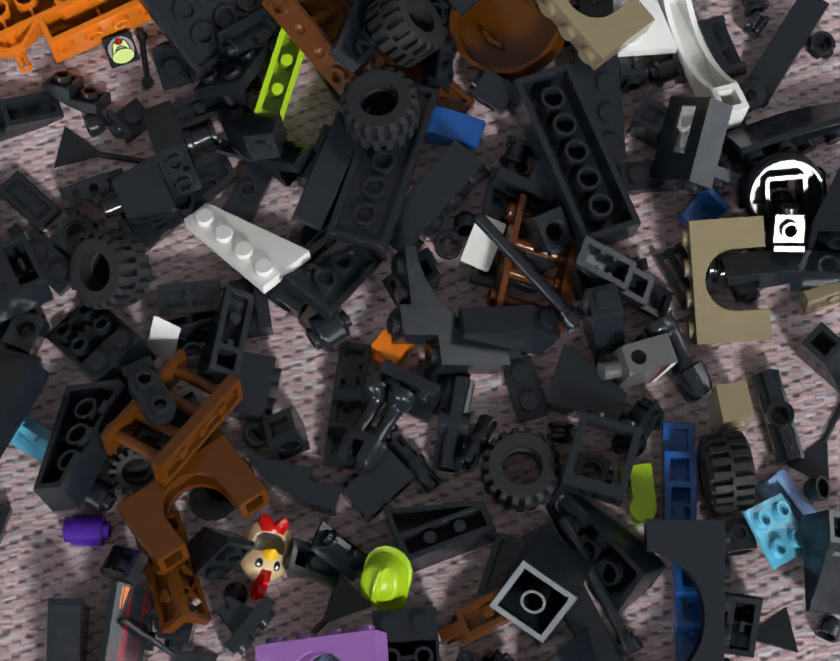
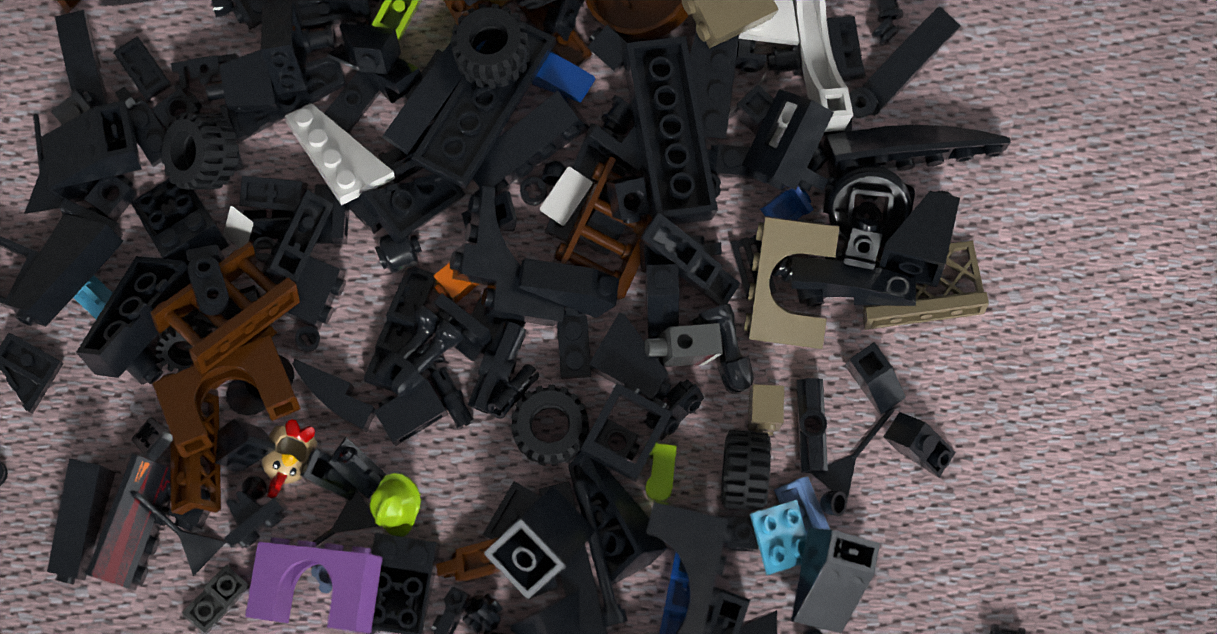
camera: 15 degrees right, 5 degrees up
(75, 149) = (198, 26): black piece -> none
(86, 530) = (127, 397): dark purple brick -> none
(285, 433) = (333, 344): black brick -> none
(439, 531) = (457, 470): black wedge -> none
(561, 432) = (597, 396): black bush -> none
(567, 313) = (629, 284): black piece -> none
(679, 471) = (703, 459): blue slope -> none
(826, 40) = (949, 58): black plate -> none

